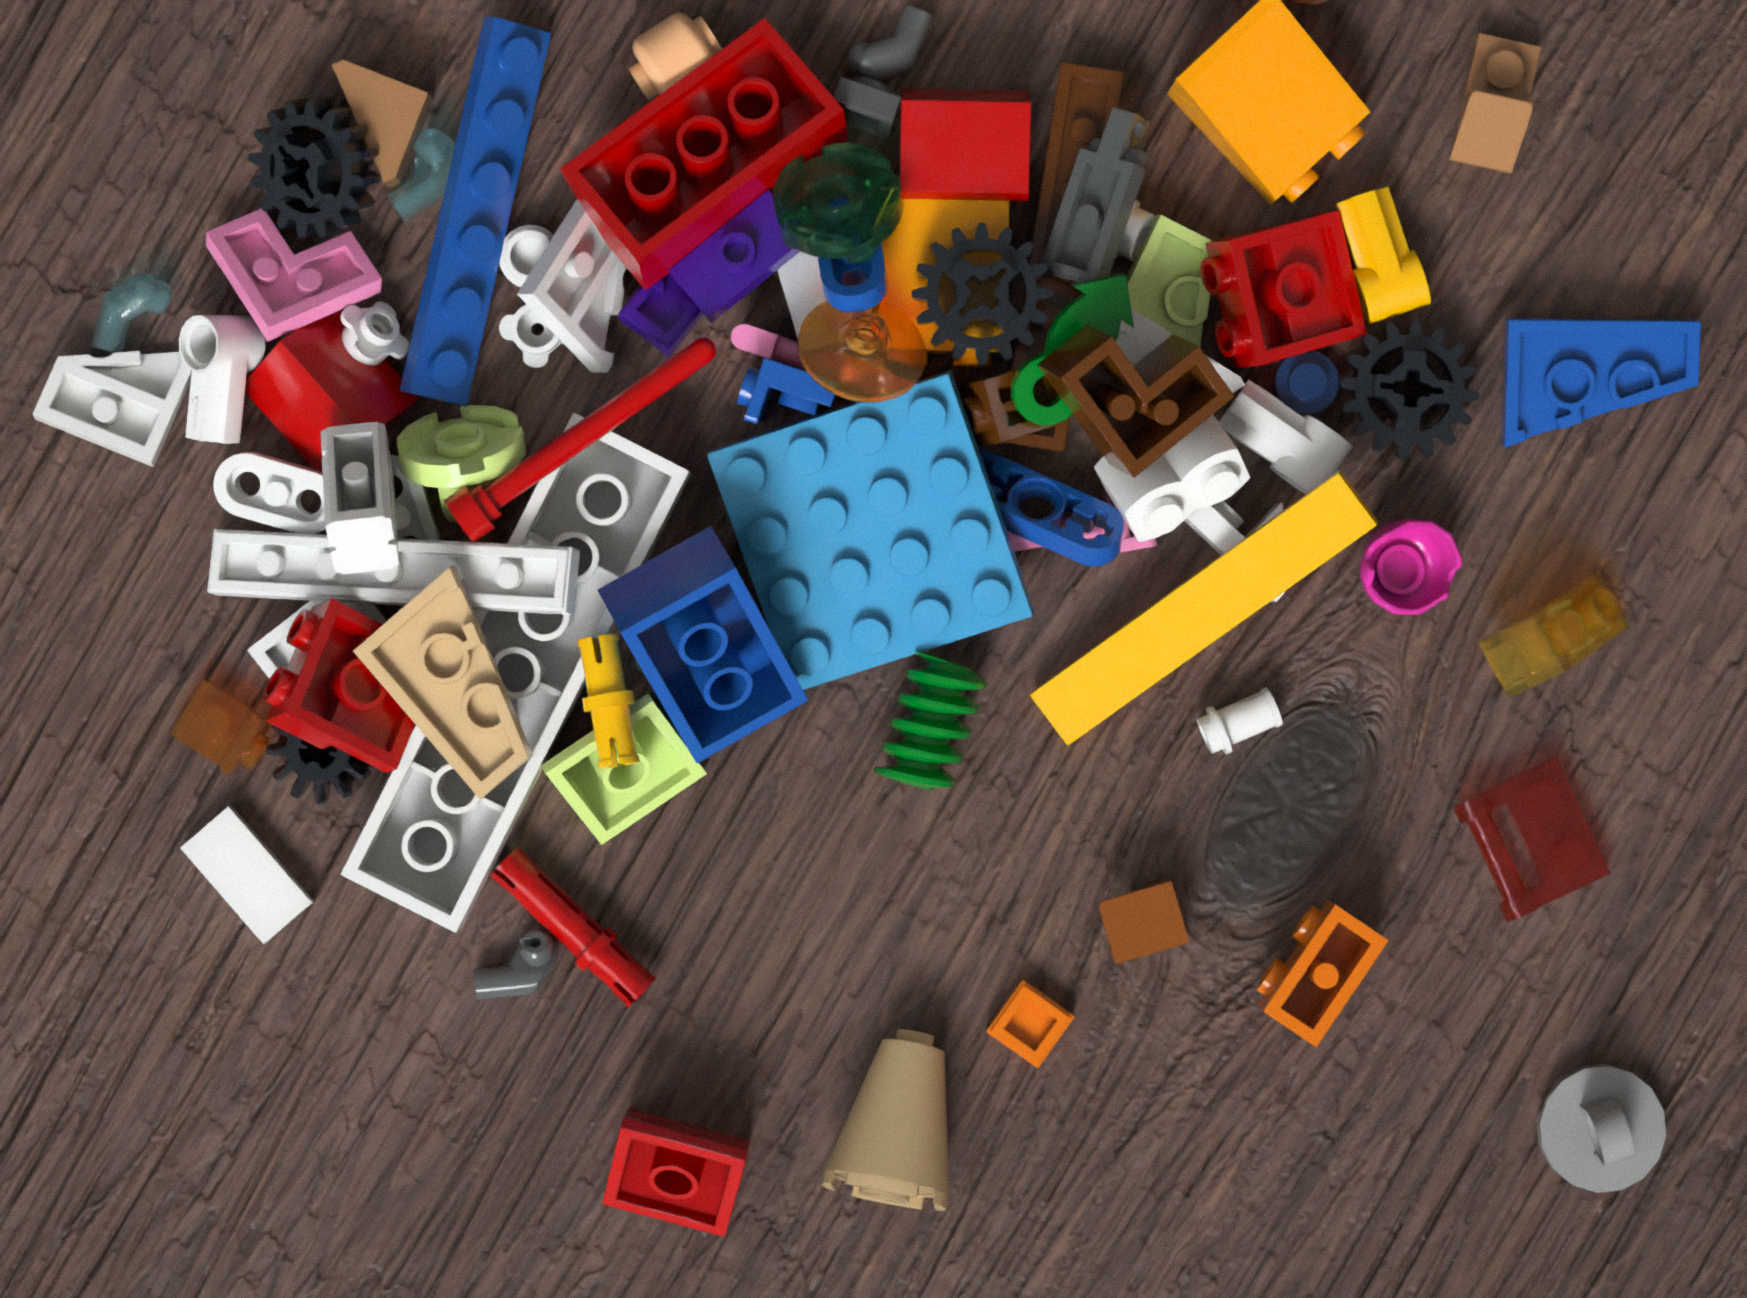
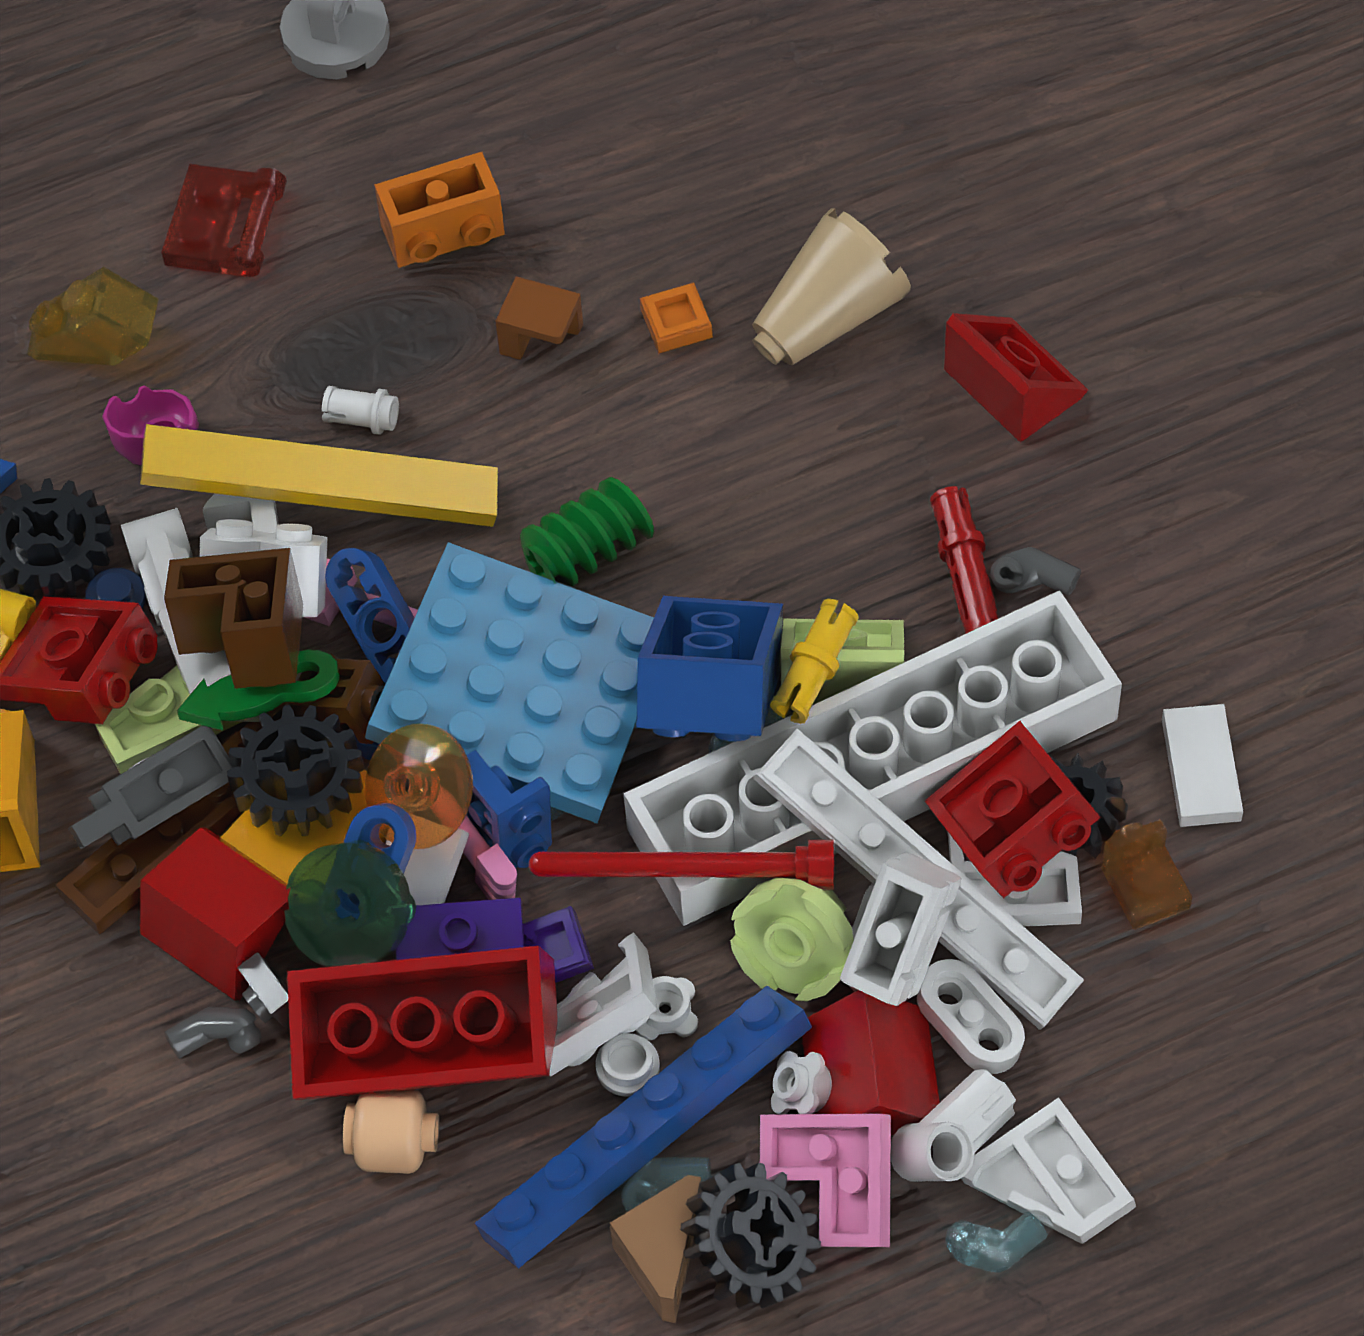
camera: 145 degrees left, 30 degrees down
(448, 683) = (931, 748): tan wing -> none

